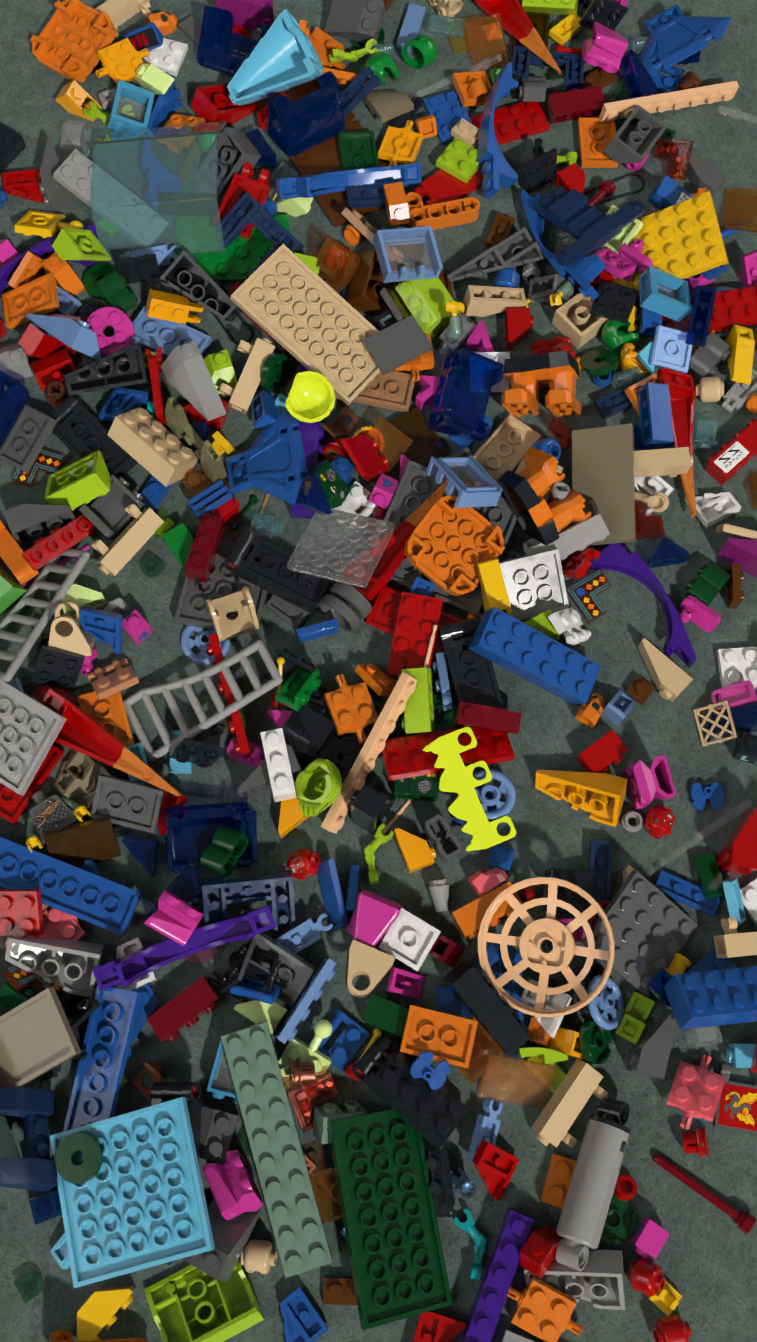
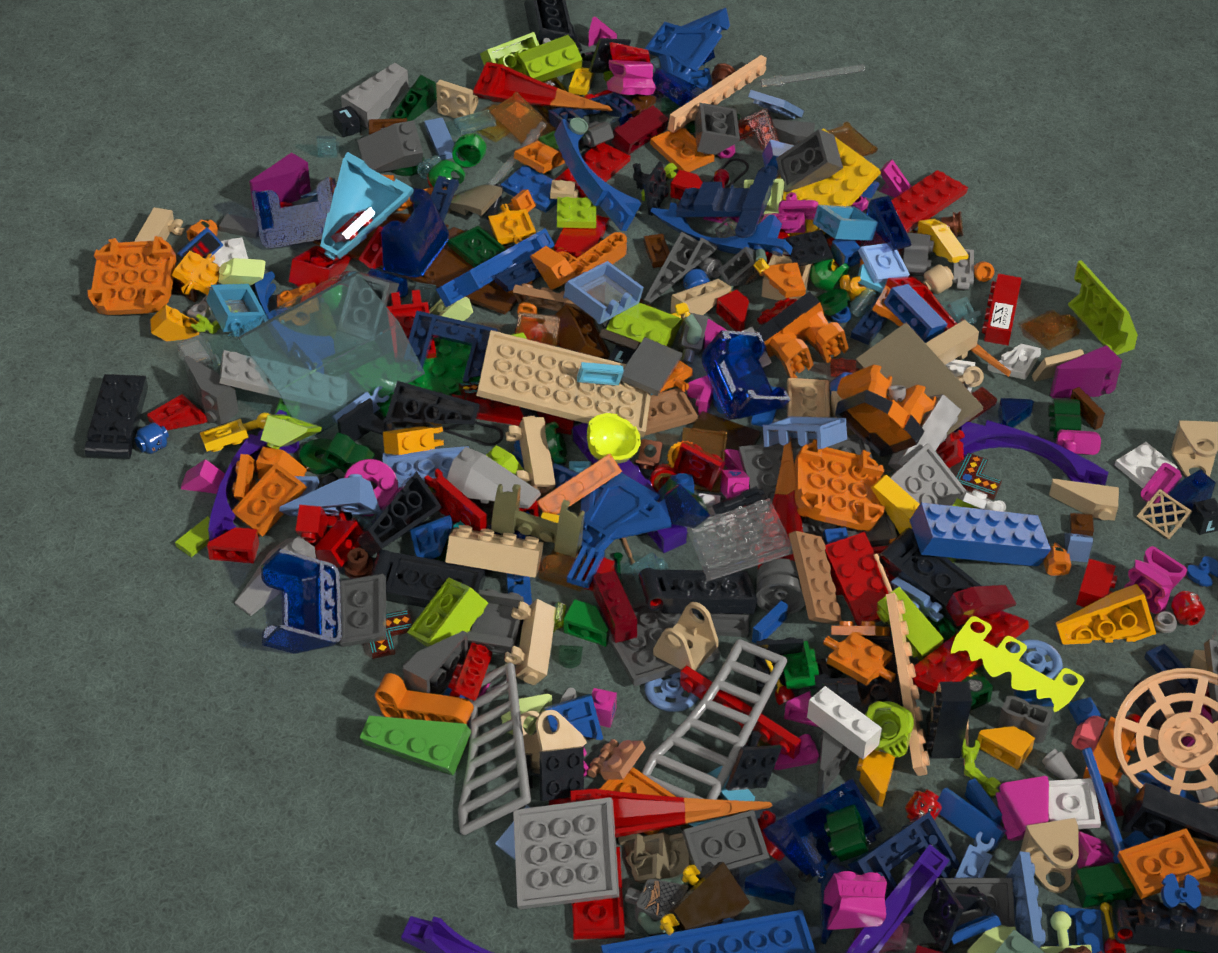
camera: 30 degrees left, 25 degrees down
(251, 85) = (349, 229): none -> plate
(260, 424) = (580, 485): none -> orange tile
(339, 55) = (410, 178): lime piece -> none
(344, 331) = (600, 373): none -> medium azure tile
(371, 509) = (743, 499): none -> black piece
(372, 616) = (815, 578): none -> medium nougat plate
(424, 998) = (1104, 802): none -> blue piece
(517, 76) = (578, 126): none -> sand green piece
(572, 321) = (786, 279): none -> orange wing
(616, 23) = (628, 53): none -> red wing
(674, 217) = (809, 161): none -> dark grey slope
(704, 139) = (775, 104): none -> medium blue plate

